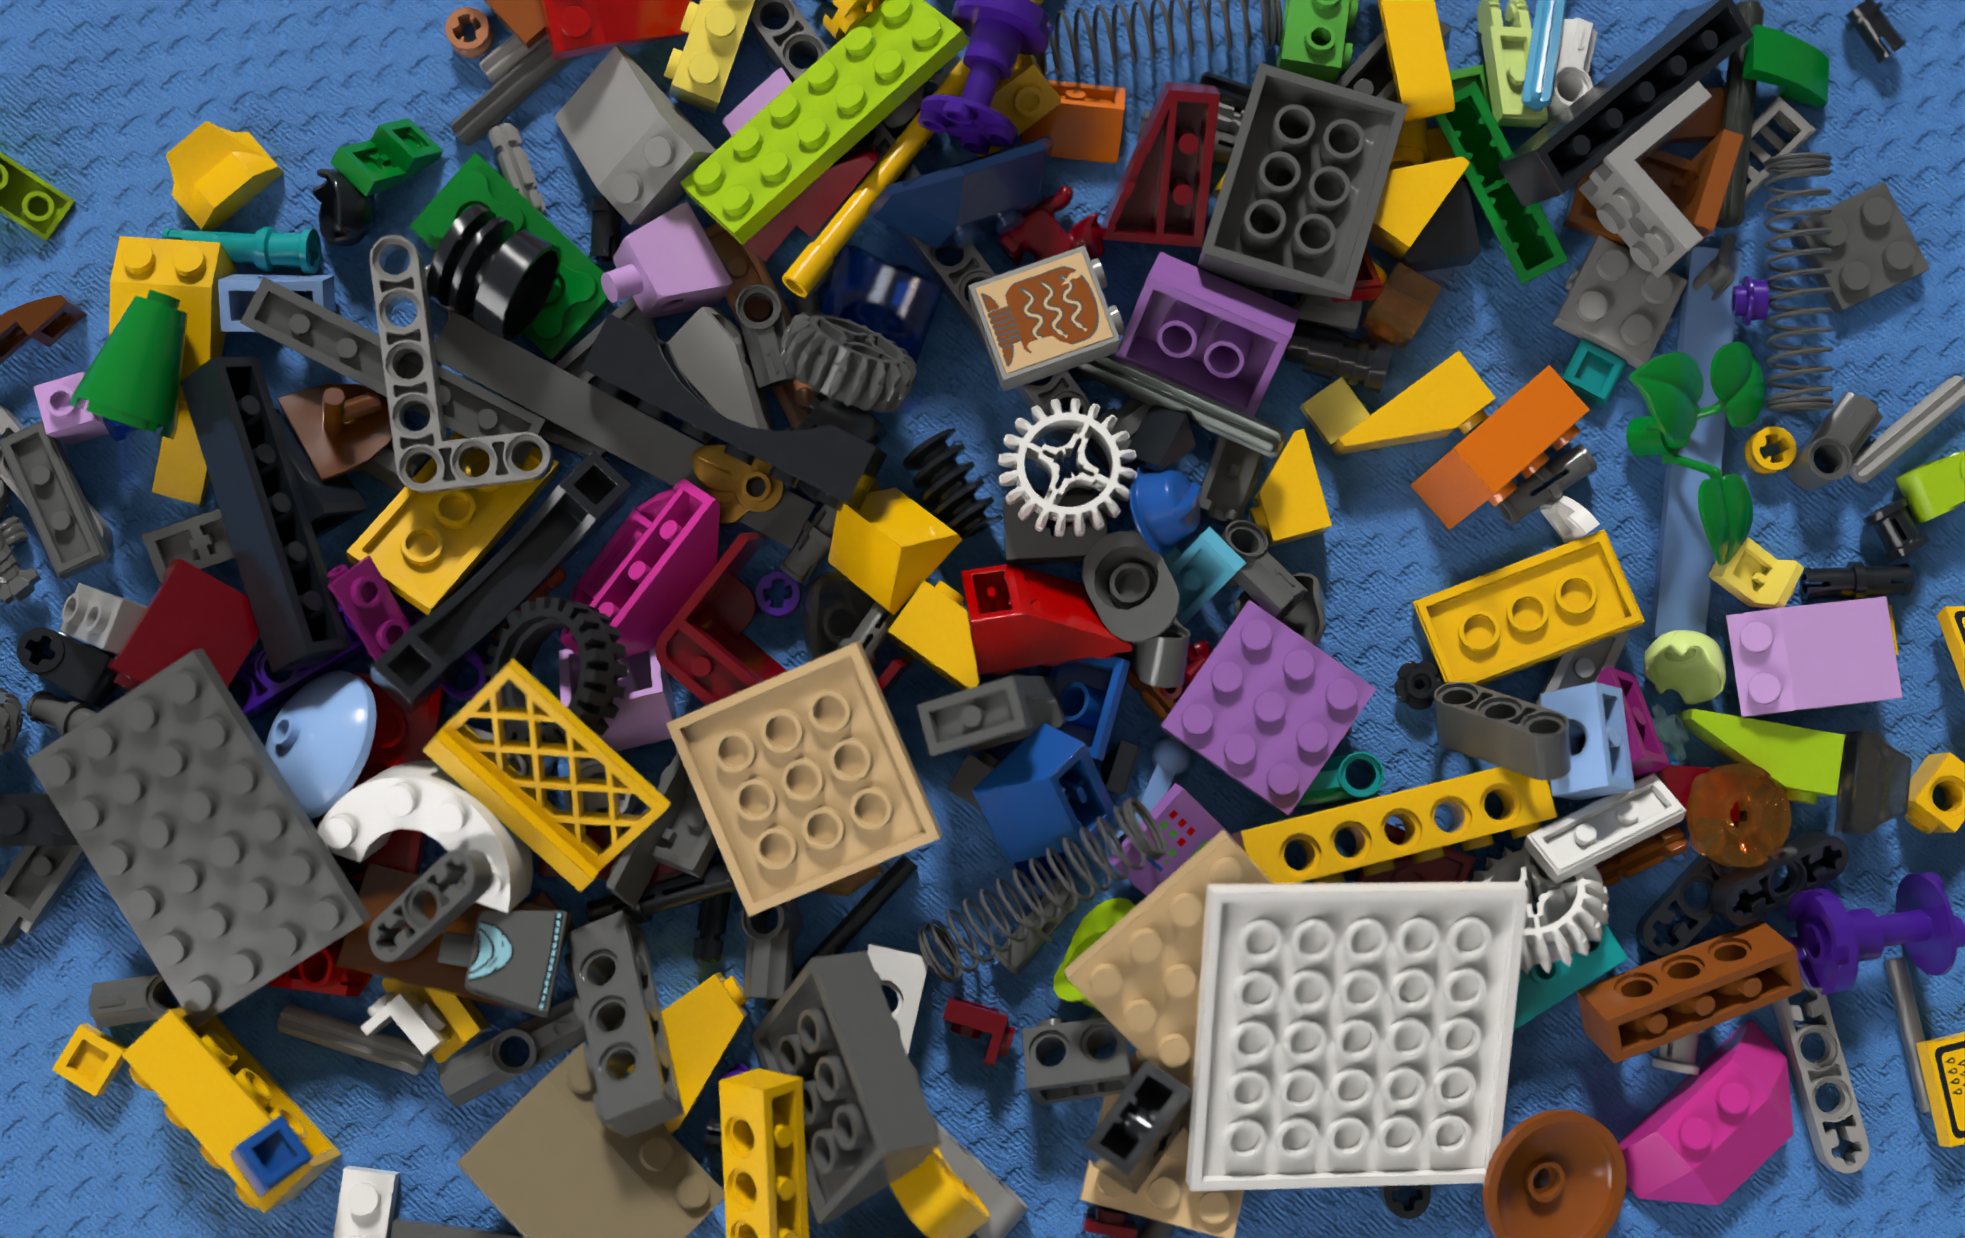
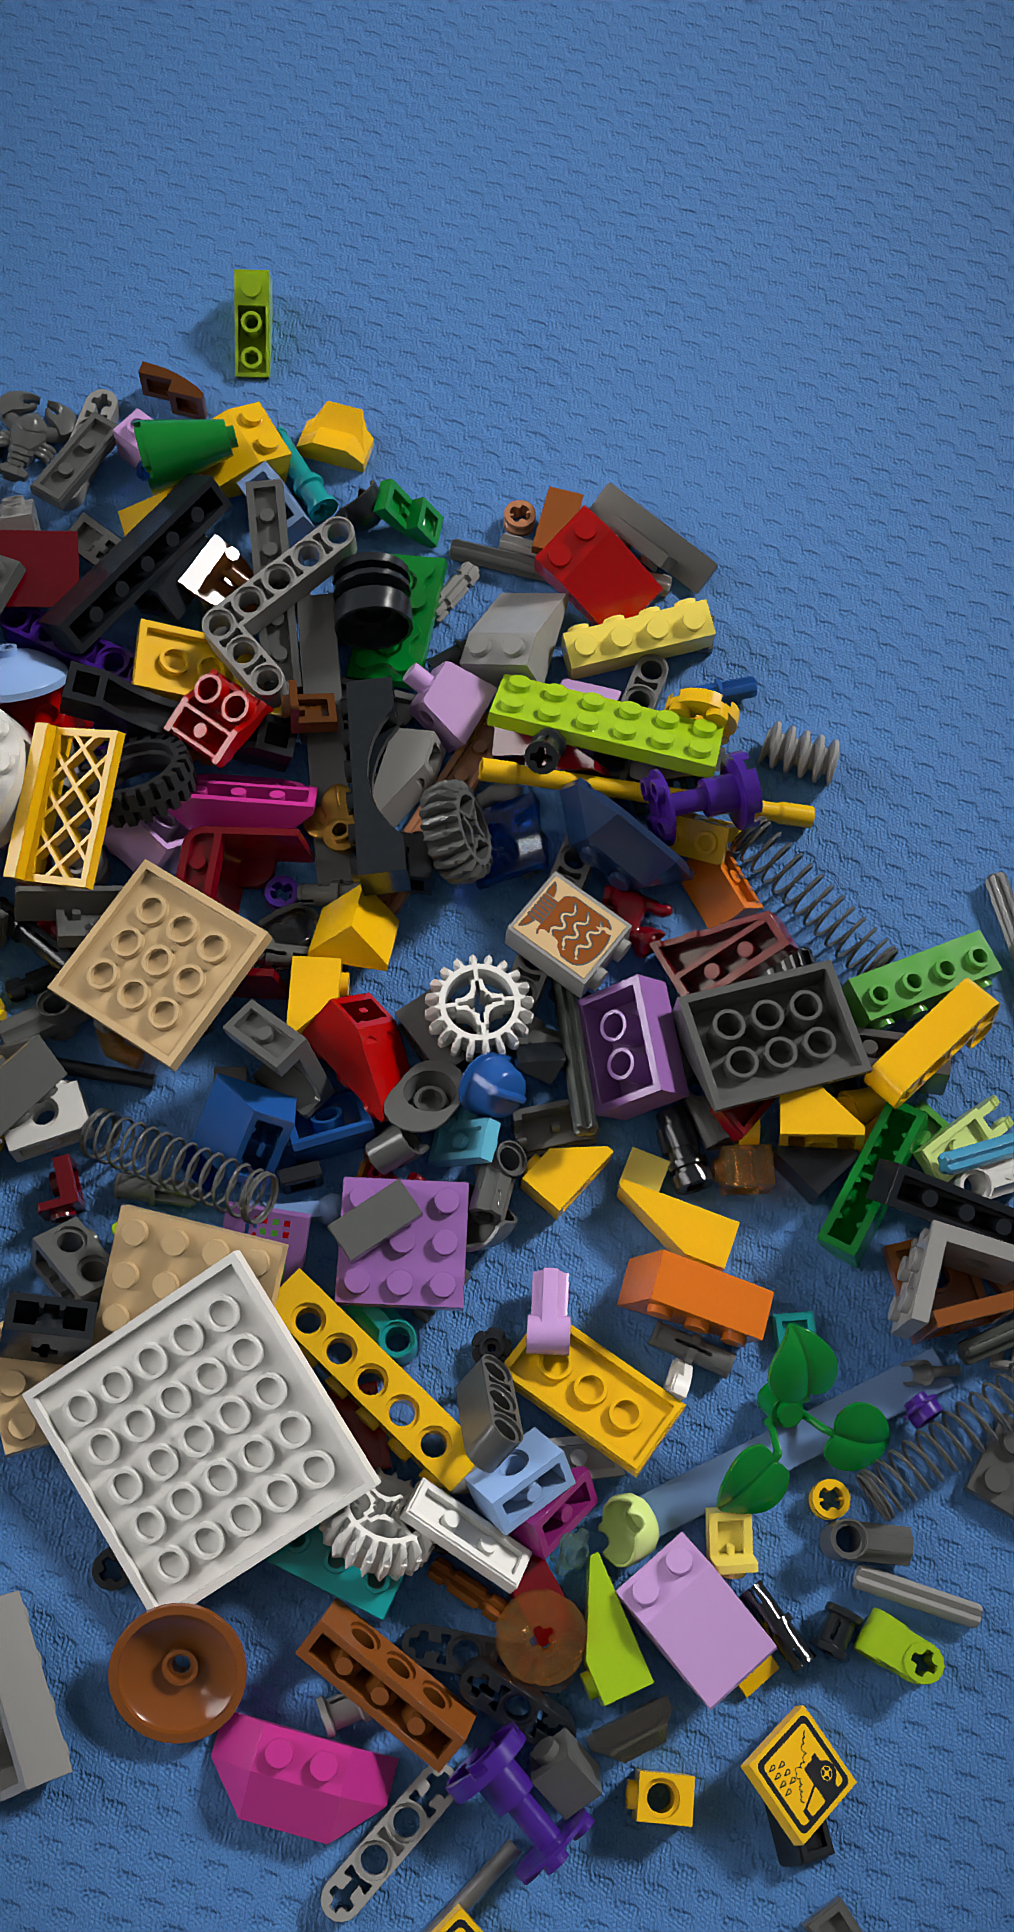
camera: 55 degrees right, 15 degrees down
(369, 605) = (115, 645): magenta hinge -> none
(536, 538) = (217, 717): none -> red slope
(590, 430) = (309, 711): none -> reddish brown bracket
(764, 338) = (449, 757): dark grey piece -> none
(826, 197) = (535, 752): none -> black bush
(949, 486) = (419, 951): black piece -> none
(1236, 722) = (375, 1221): none -> dark grey tile
(1442, 613) = (548, 1324): none -> lavender piece
(1618, 303) = (855, 1321): light grey plate -> none
(1871, 871) = (565, 1773): none -> dark grey brick

